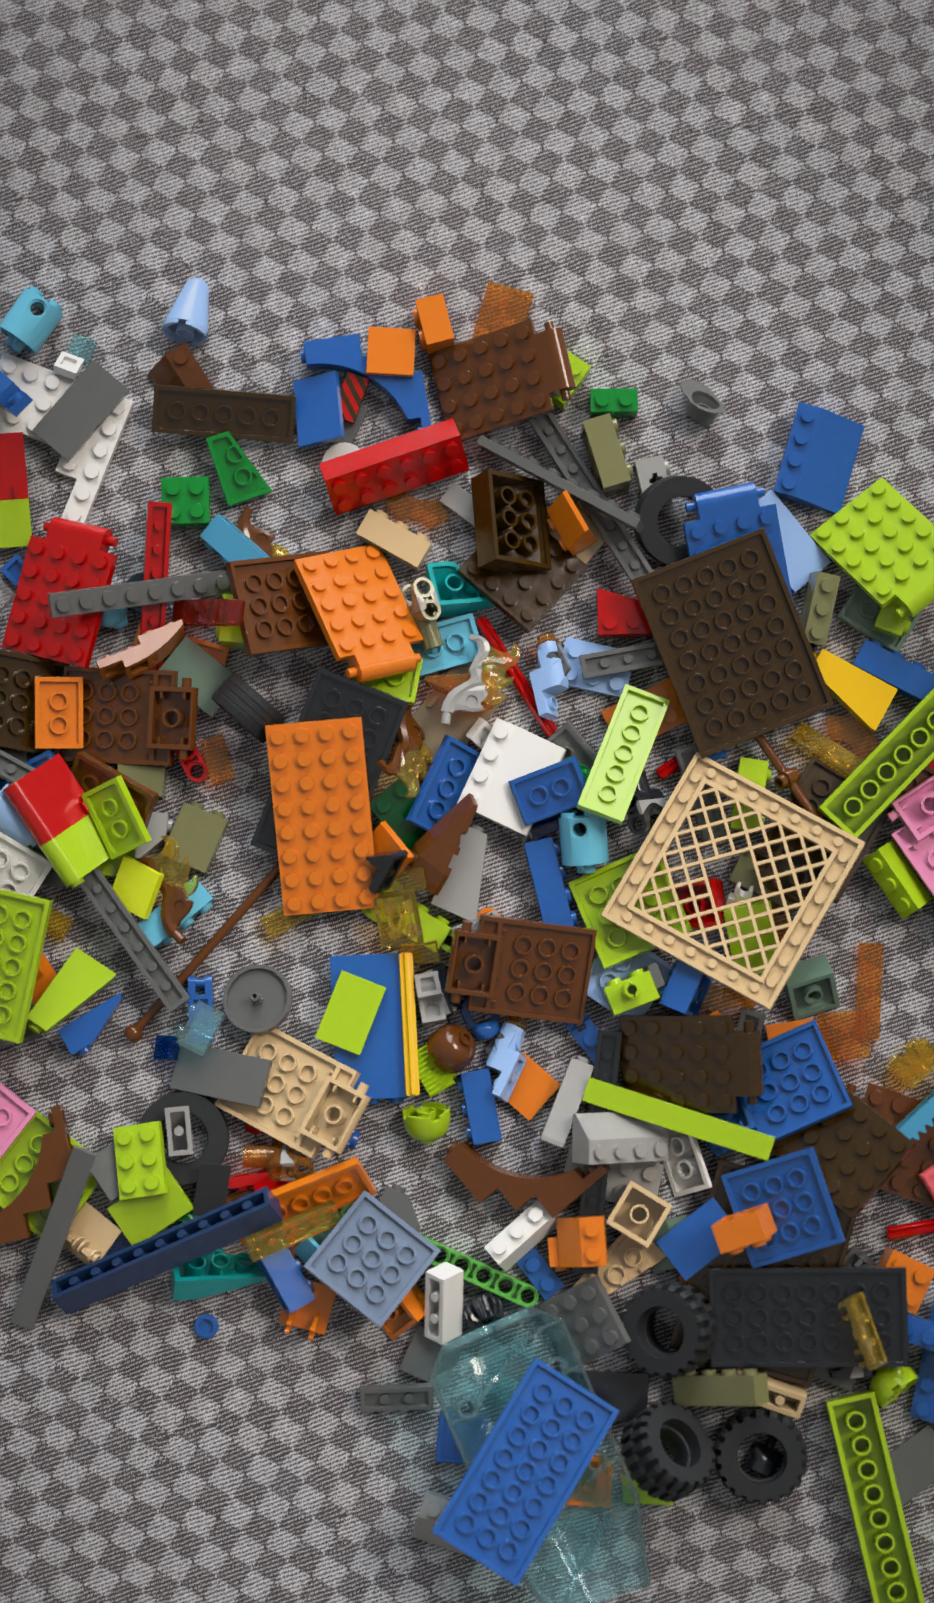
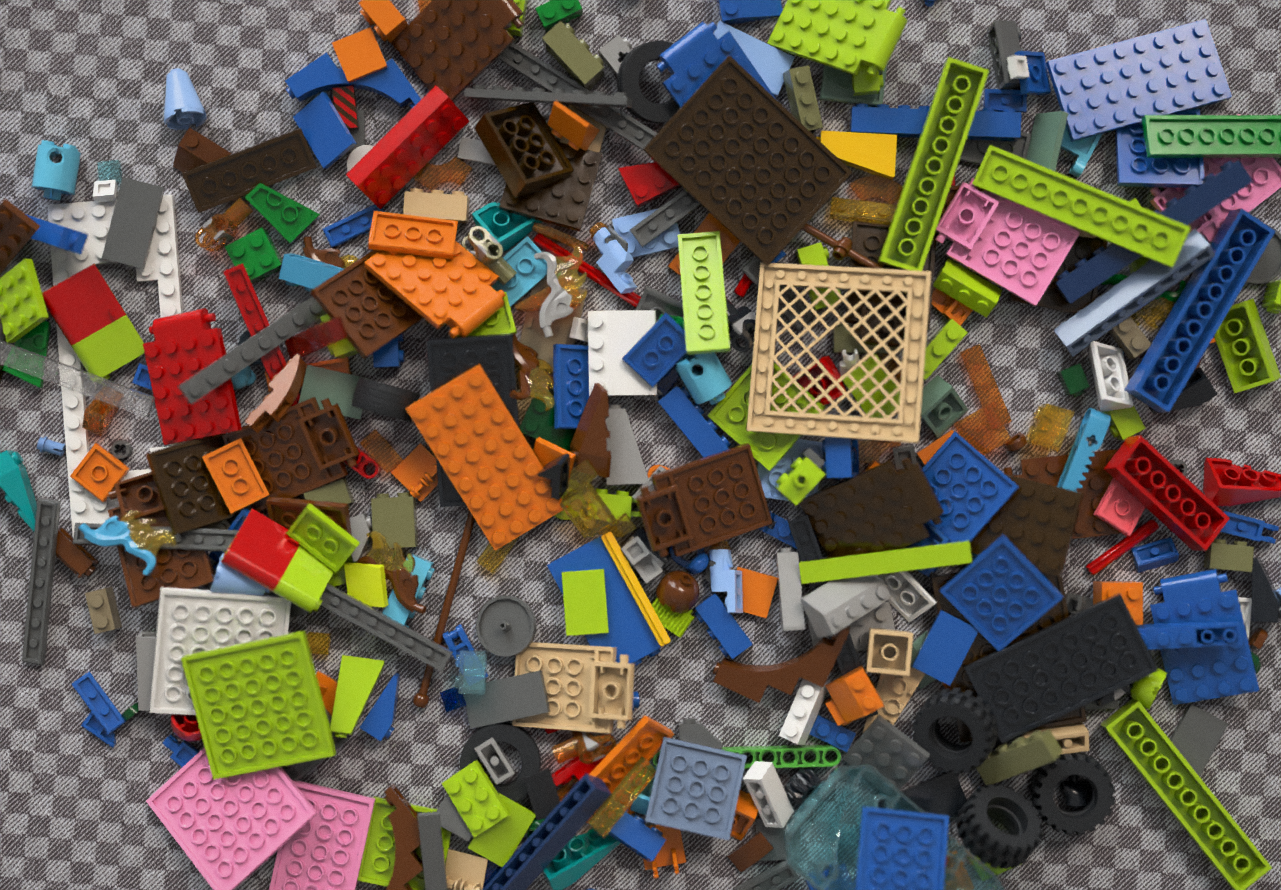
camera: 25 degrees left, 5 degrees up
(159, 456) = (214, 226): none -> clear orange connector
(244, 799) = (418, 472): none -> orange hinge
(274, 666) = (390, 355): none -> blue brick
(302, 519) = (350, 226): none -> blue tile
(357, 556) = (413, 234): none -> orange tile
(396, 1356) = (750, 851): none -> reddish brown slope
(427, 1122) = (686, 658): lime cylinder -> none
(505, 629) = (559, 236): none -> clear orange tile
(743, 1229) = (979, 626): orange brick -> none
(841, 927) = (942, 345): none -> lime brick
(864, 1331) = (1111, 660): clear yellow plate -> none
(870, 891) = (950, 307): none -> orange slope
(874, 1062) = (1016, 443): none -> reddish brown tile

